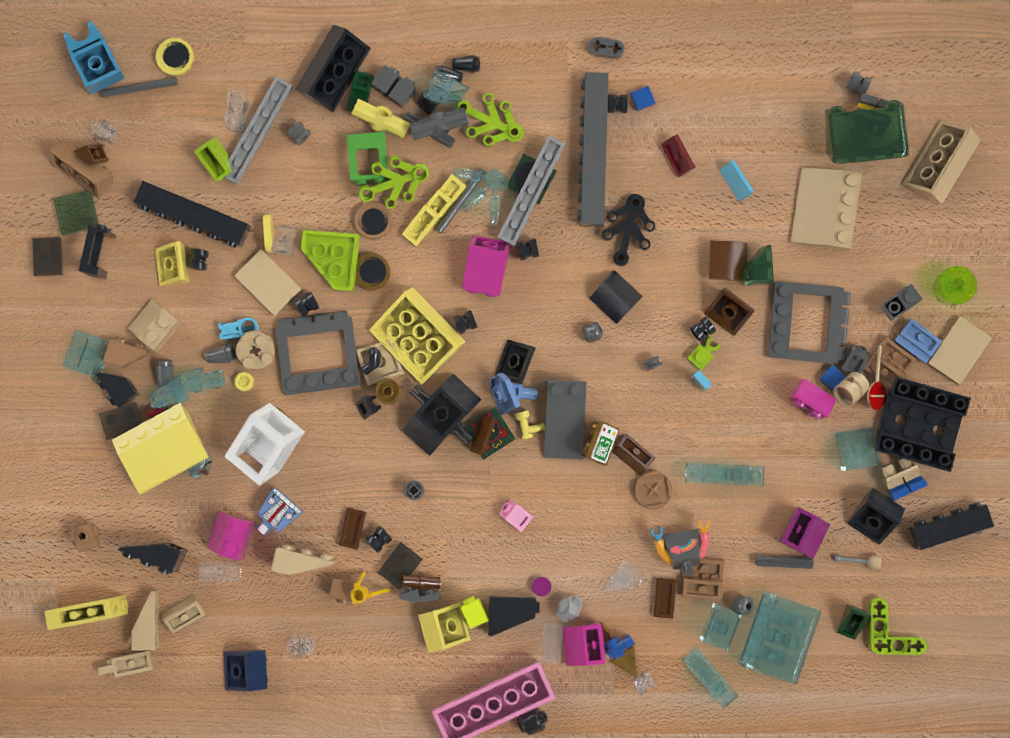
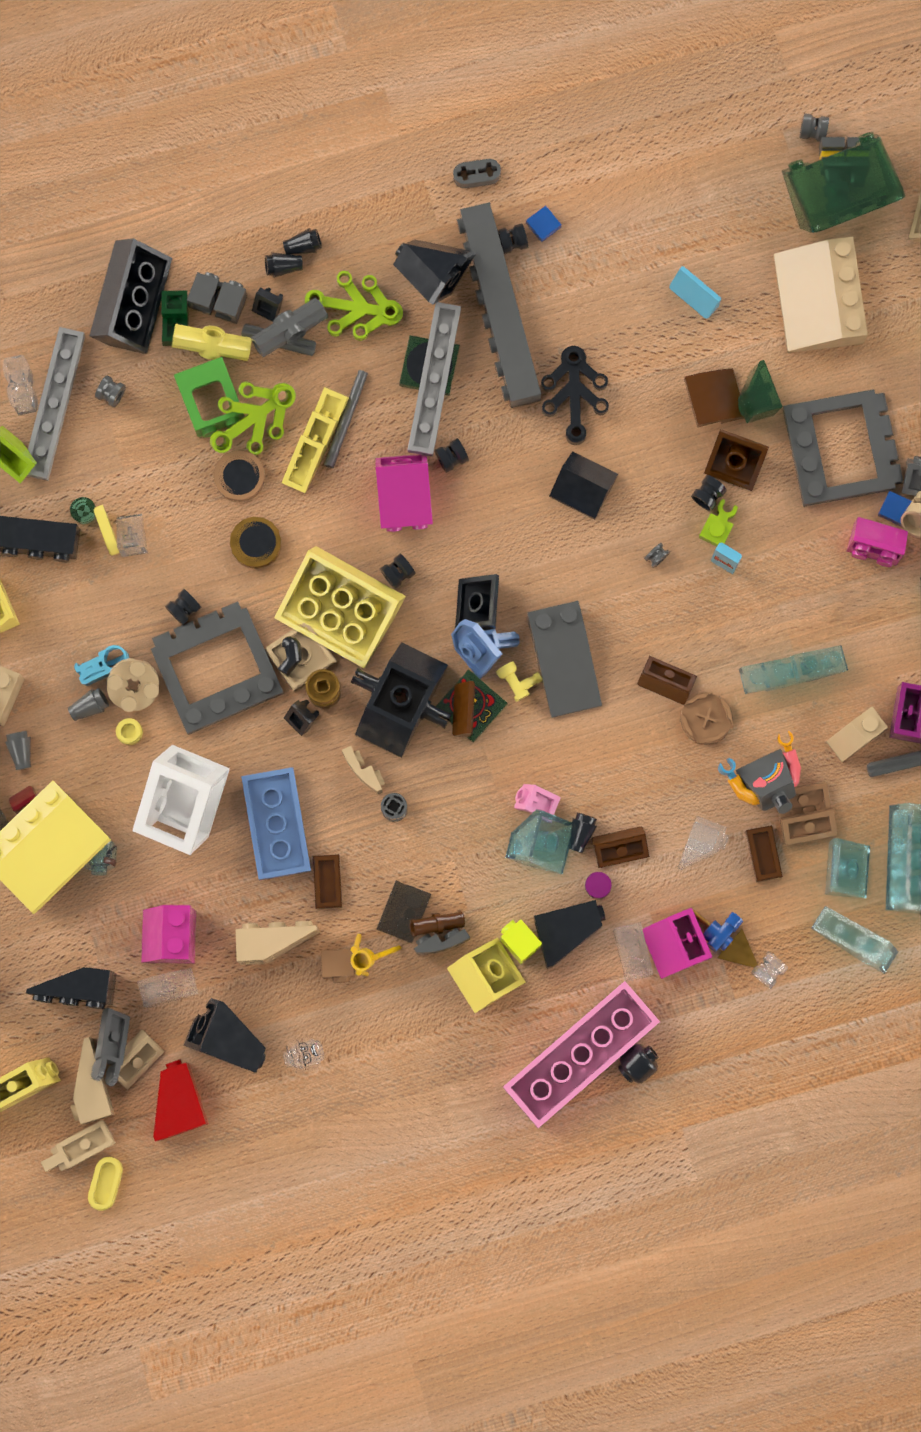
camera: 20 degrees left, 5 degrees down
(138, 694) = (105, 1183): none -> light yellow tile
(168, 601) = (110, 1045): none -> dark grey hinge
(177, 388) = (45, 762): clear light blue slope -> none
(198, 259) = (23, 590): black wheel -> none
(205, 654) = (178, 1102): none -> red slope
(245, 670) = (238, 1108): dark blue slope -> none
(248, 620) = (225, 1037): none -> black slope
(255, 213) = (82, 510): none -> clear green tile
(268, 282) = (124, 594): tan tile -> none
(277, 512) = (222, 888): torso -> none
(328, 477) = (276, 823): none -> medium blue plate
(333, 256) = (200, 535): lime plate -> none
(375, 542) = (366, 884): black wheel -> none
(402, 463) = (371, 779): none -> tan slope
(444, 89) = (284, 281): clear light blue slope -> none
(478, 195) = (387, 385): clear light blue plant -> none
(510, 545) = (541, 842): none -> clear light blue slope
(541, 544) = (581, 831): none -> black cone
(553, 109) = (432, 267): none -> black slope
(565, 563) = (620, 847): none -> reddish brown slope
(569, 608) = (643, 901): light grey rock -> none
(592, 332) = (566, 537): dark grey piece -> none
(601, 443) = (622, 675): slope -> none
(678, 155) = (610, 282): dark red plate -> none
(742, 605) = (868, 832): dark grey piece -> none
(756, 533) = (857, 734): none -> tan slope

